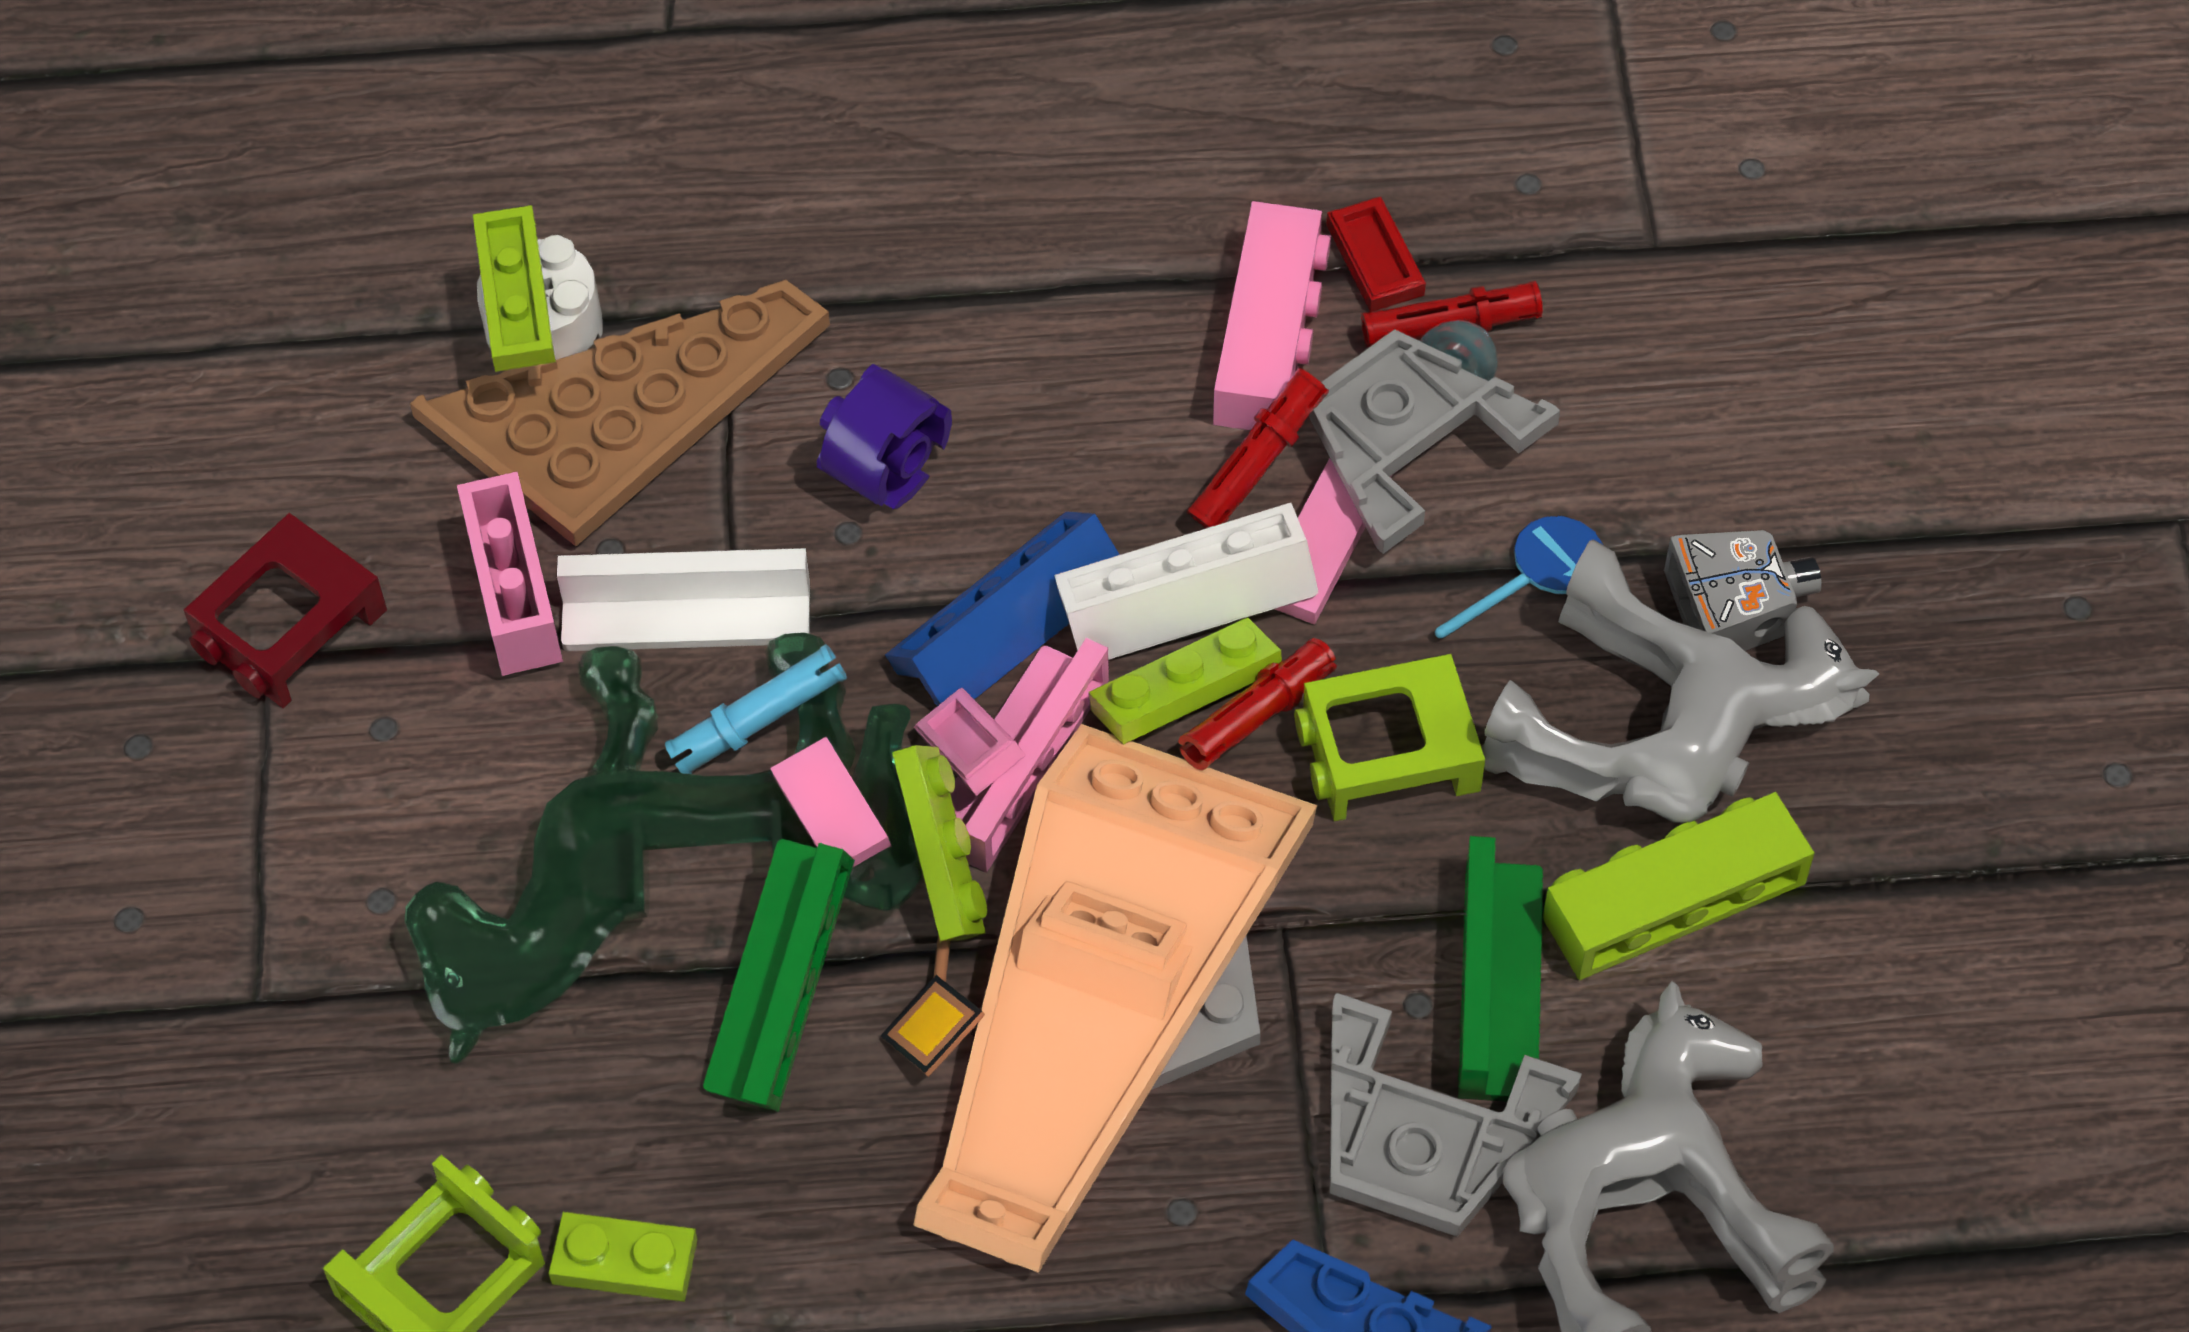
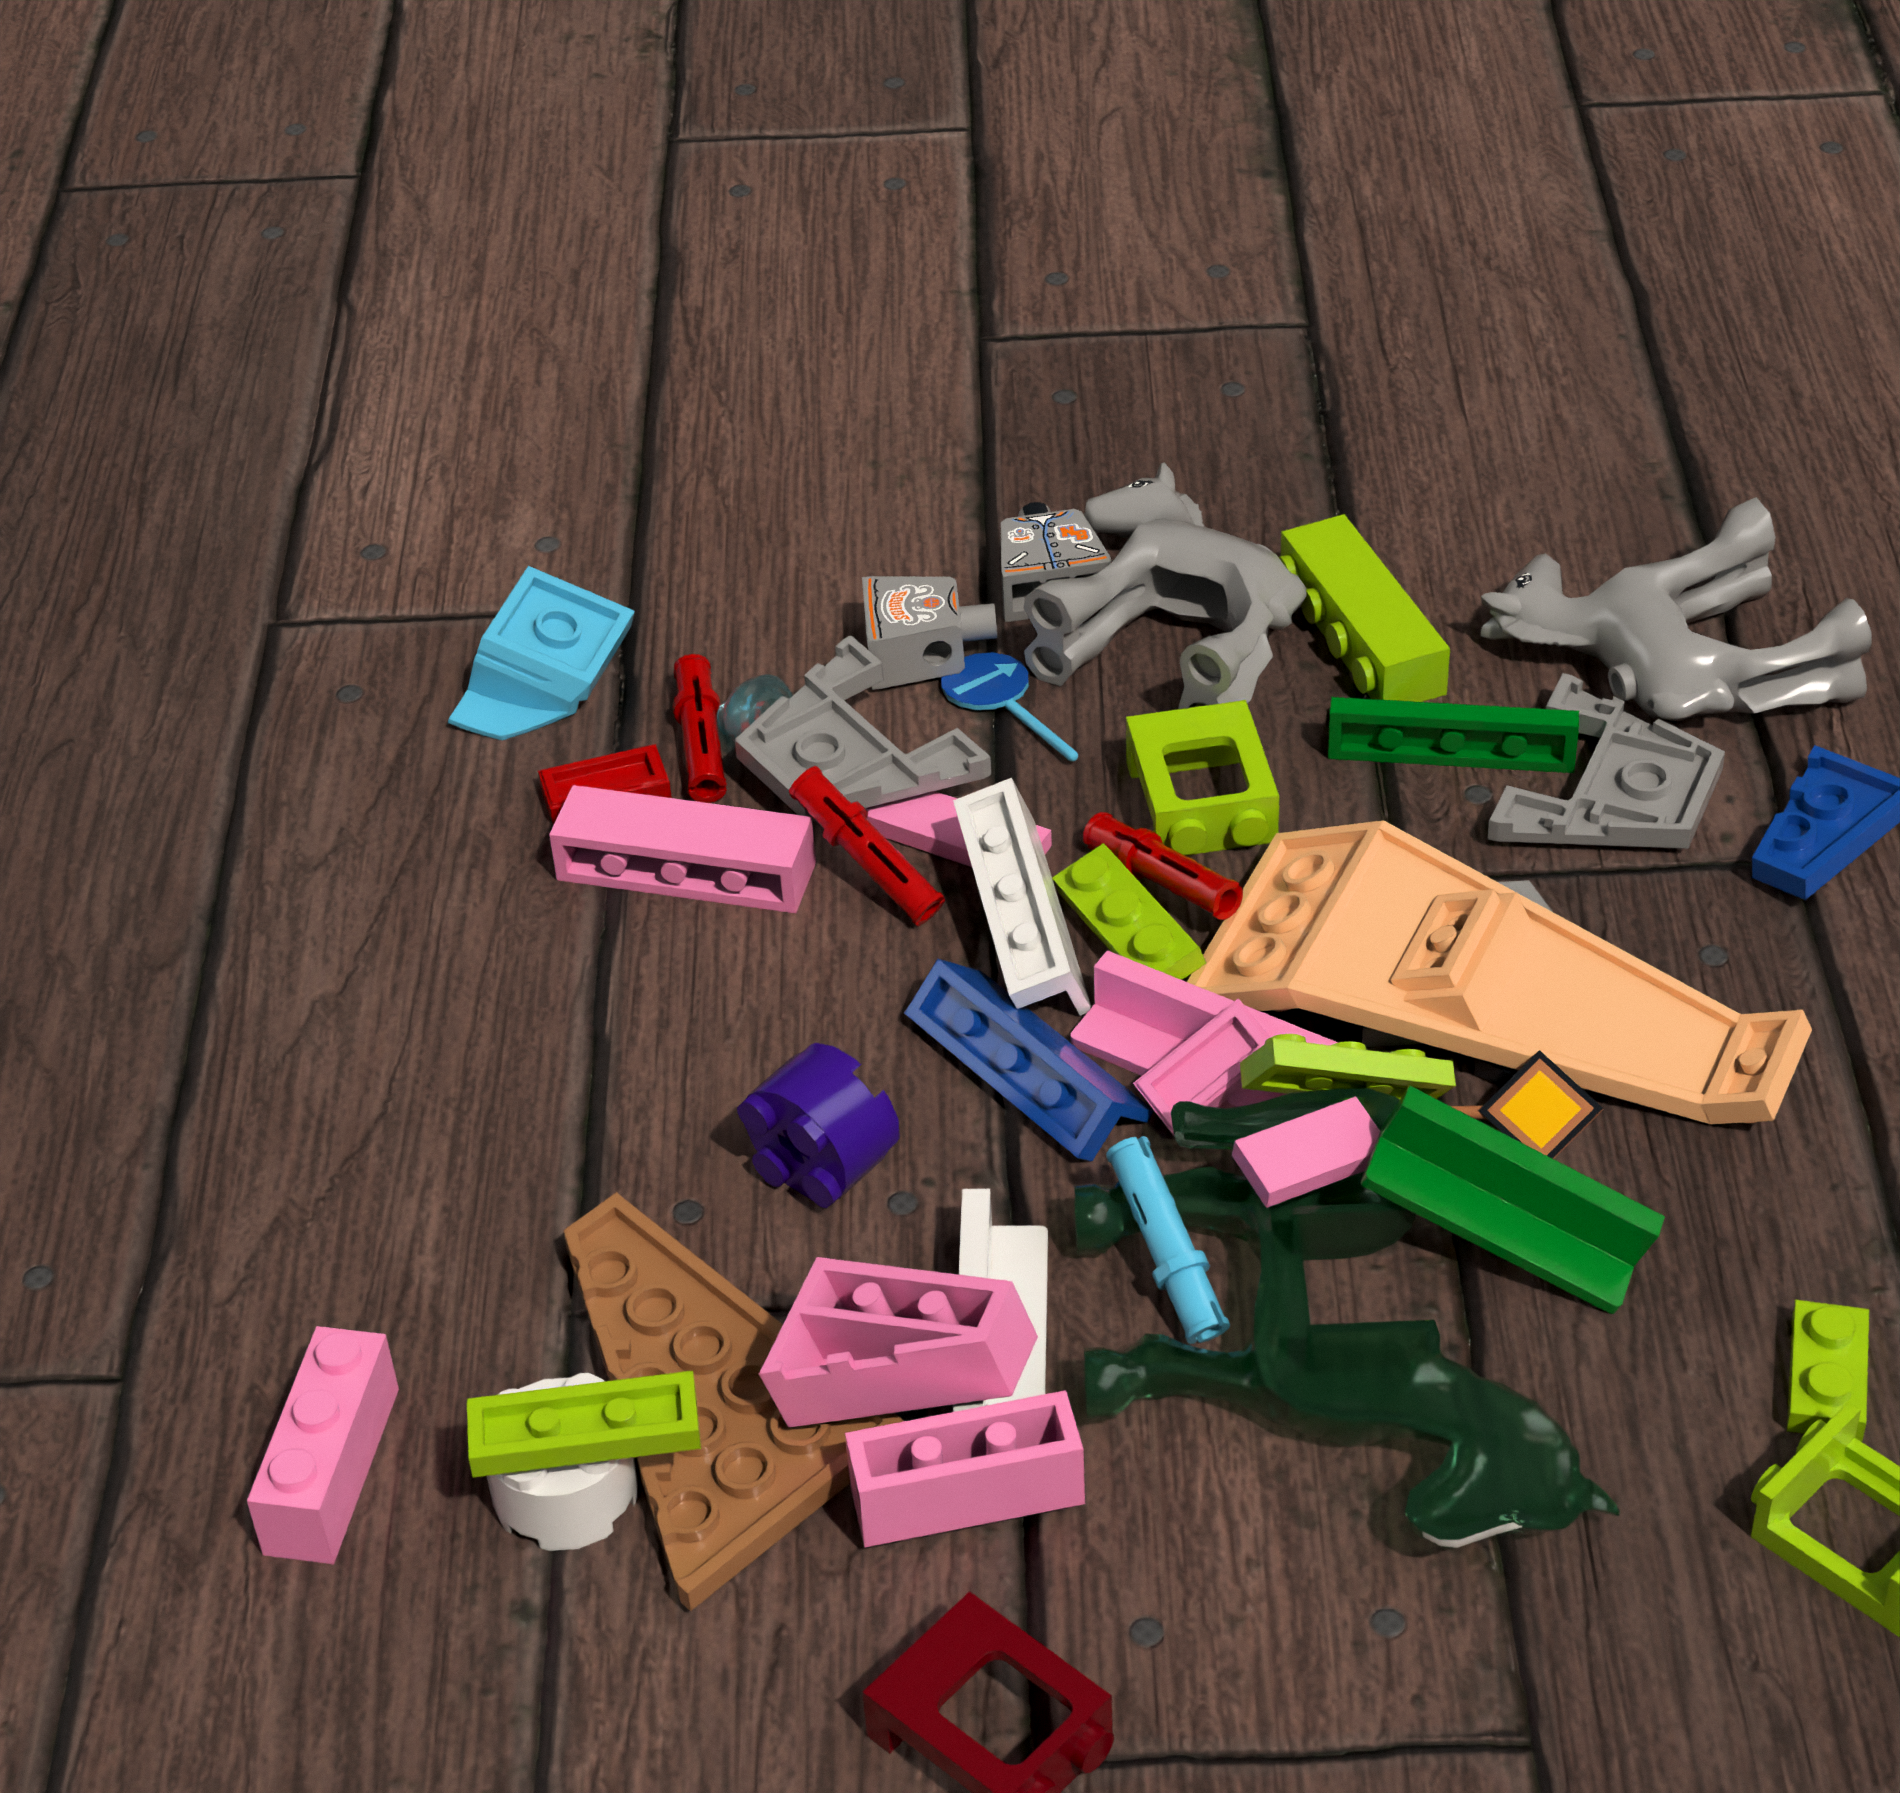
camera: 85 degrees left, 15 degrees down
(567, 154) = (323, 1445): none -> bright pink brick
(603, 492) = (894, 1342): none -> bright pink wedge
(1561, 176) = (540, 656): none -> medium azure piece
(1605, 476) = (920, 628): none -> light grey torso

